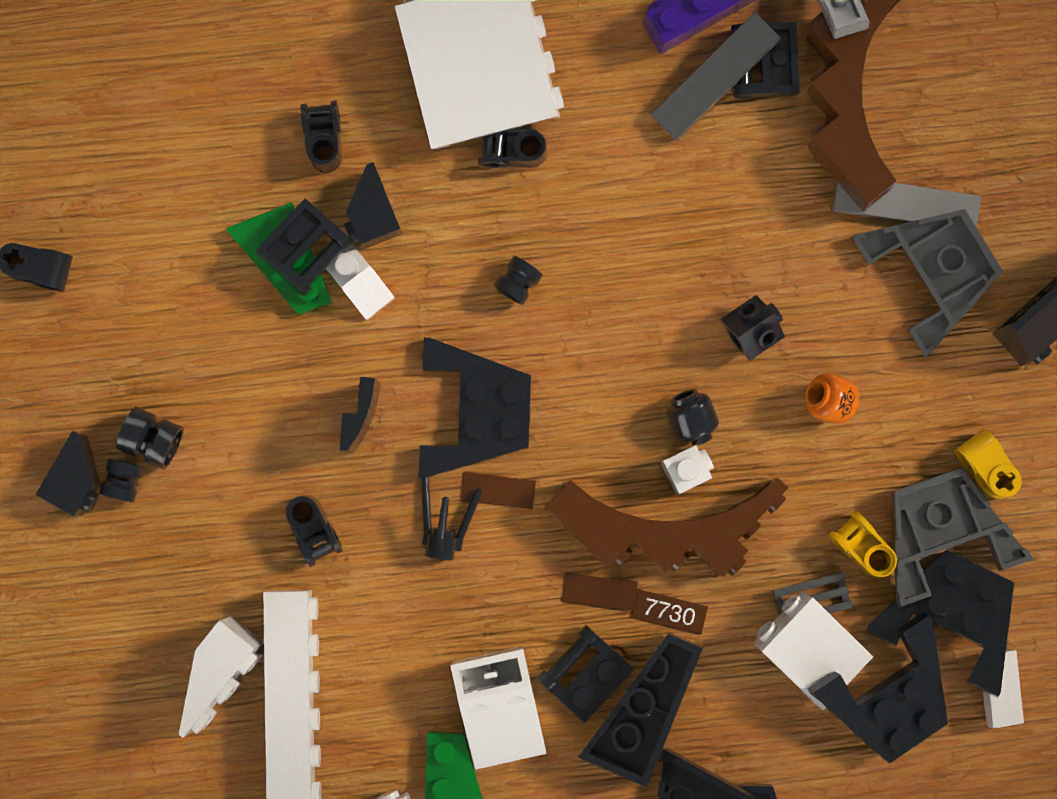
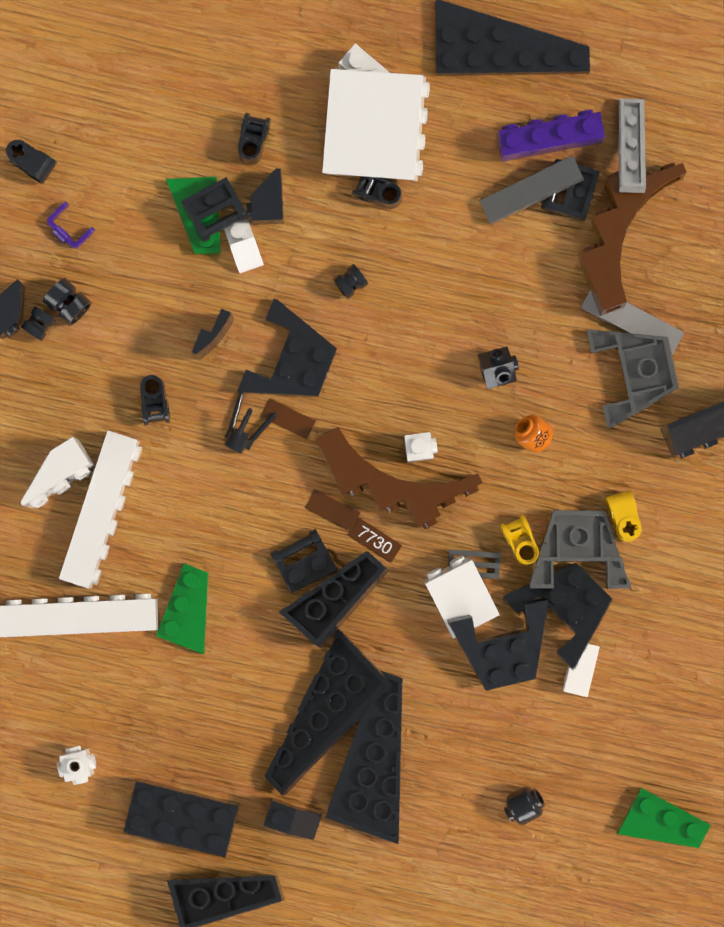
camera: 25 degrees right, 0 degrees up
(111, 349) = (61, 234): none -> dark purple piece
(498, 707) = (237, 562): white slope -> none
(692, 417) = (435, 414): black head -> none

